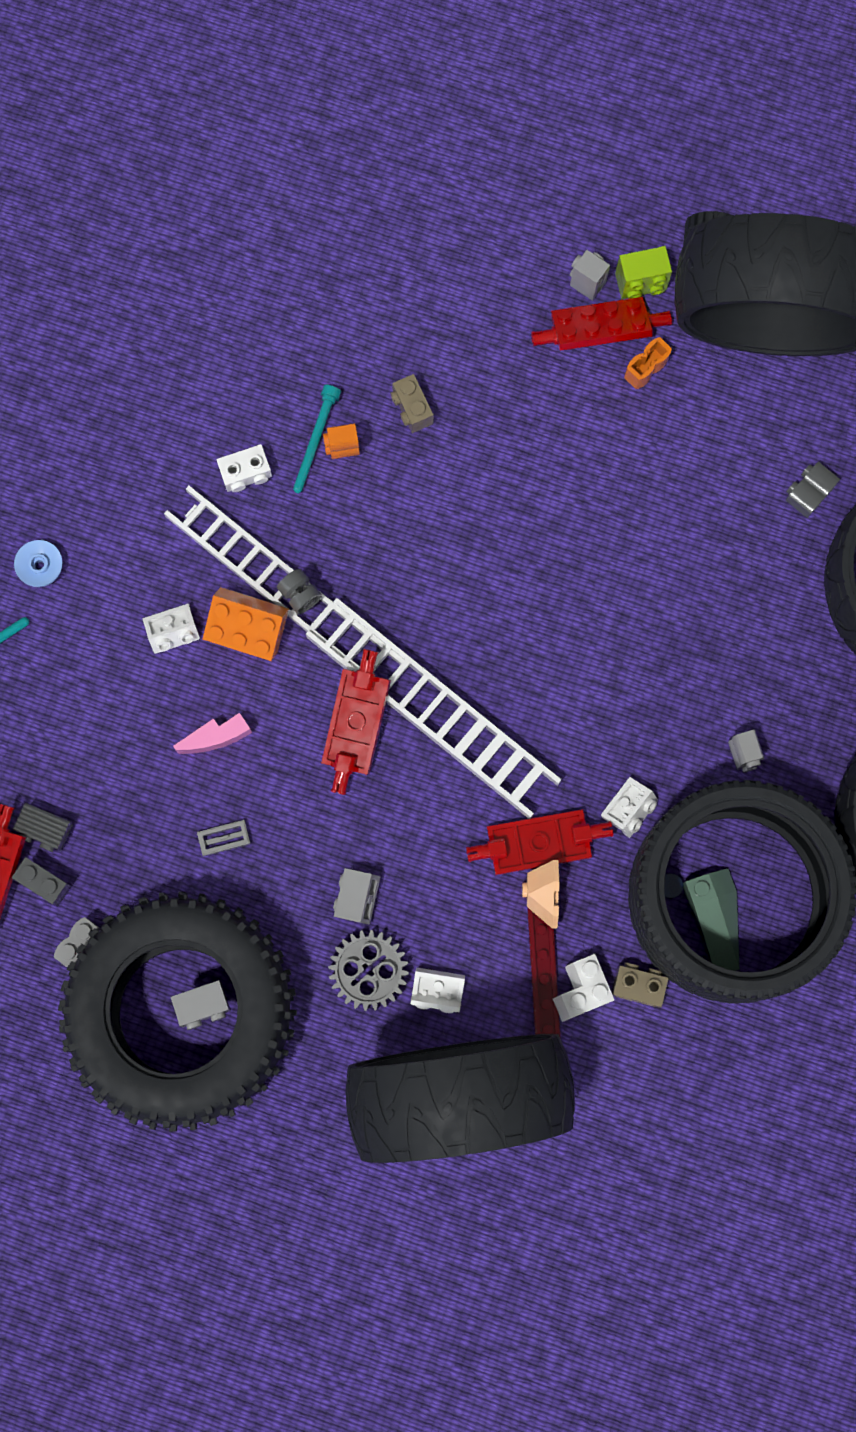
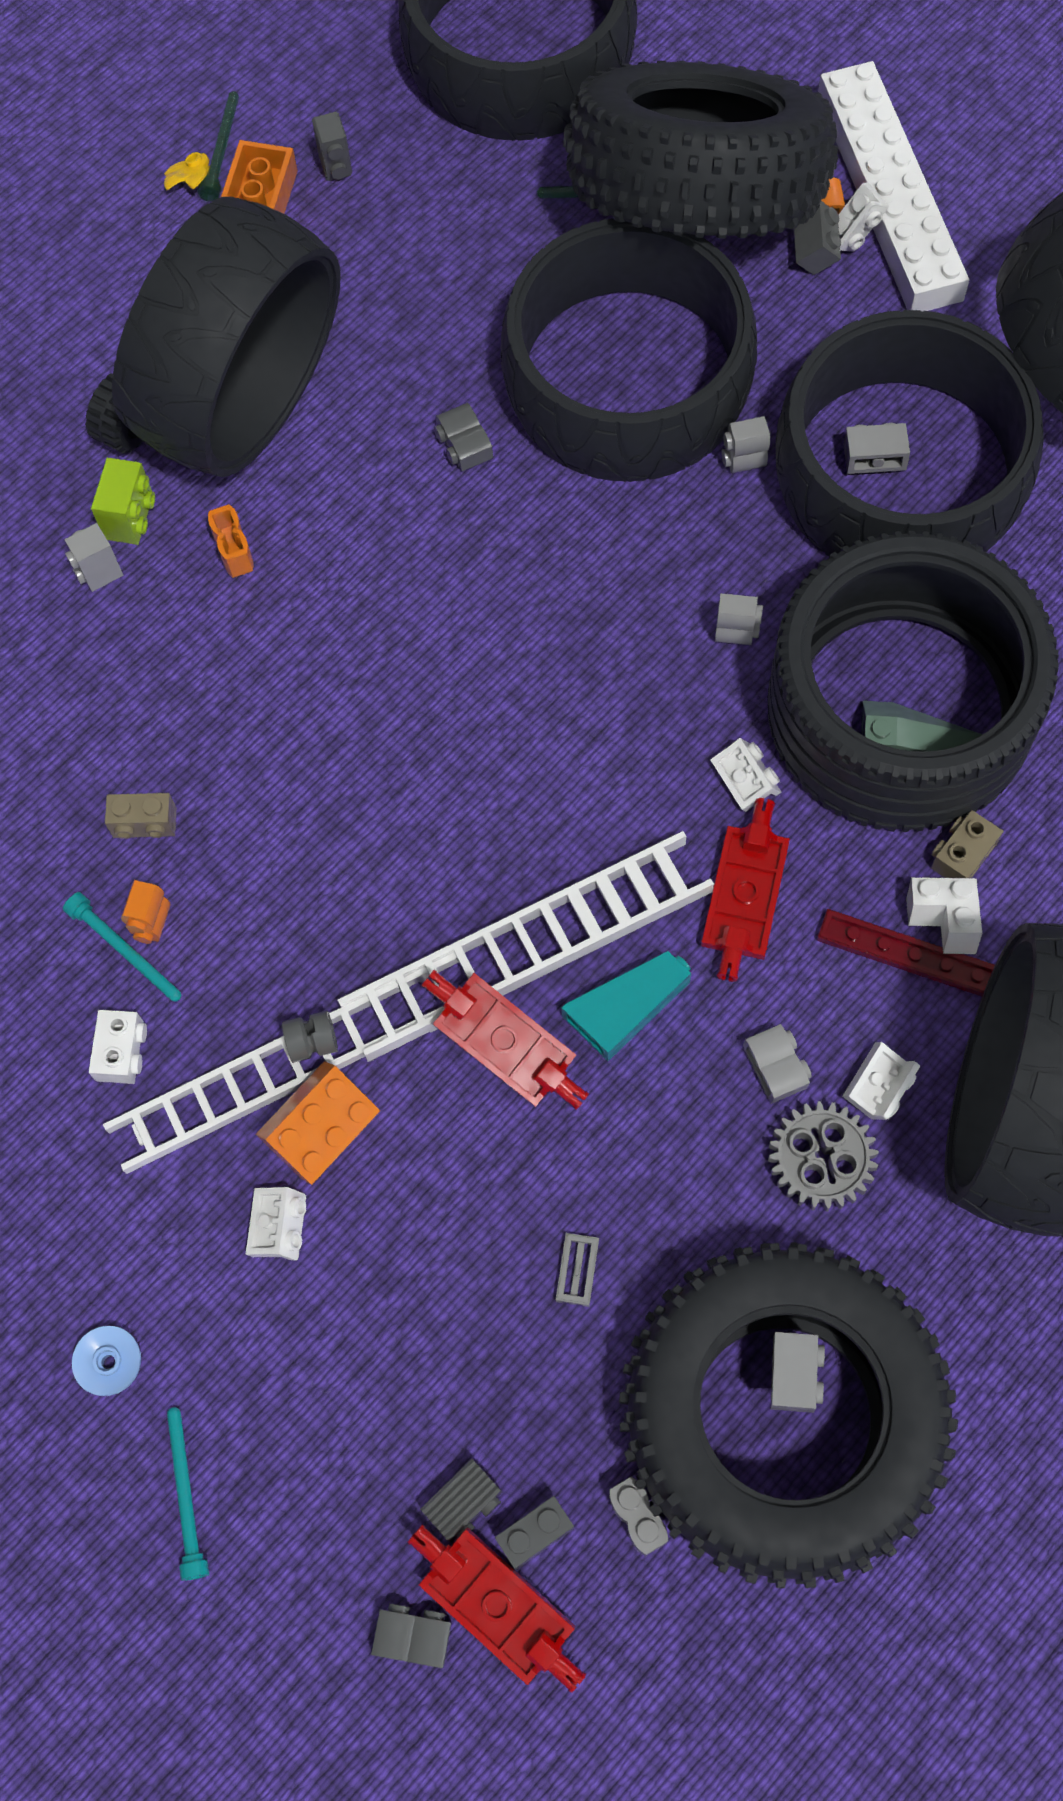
camera: 60 degrees left, 10 degrees down
(213, 736) = (441, 1224): bright pink slope -> none
(356, 896) = (724, 1130): light grey brick -> none
(418, 793) = (625, 1005): none -> teal slope
(421, 913) = (776, 1063): none -> light grey brick
(542, 892) = (812, 906): light nougat slope -> none
(600, 324) = (156, 575): red plate -> none

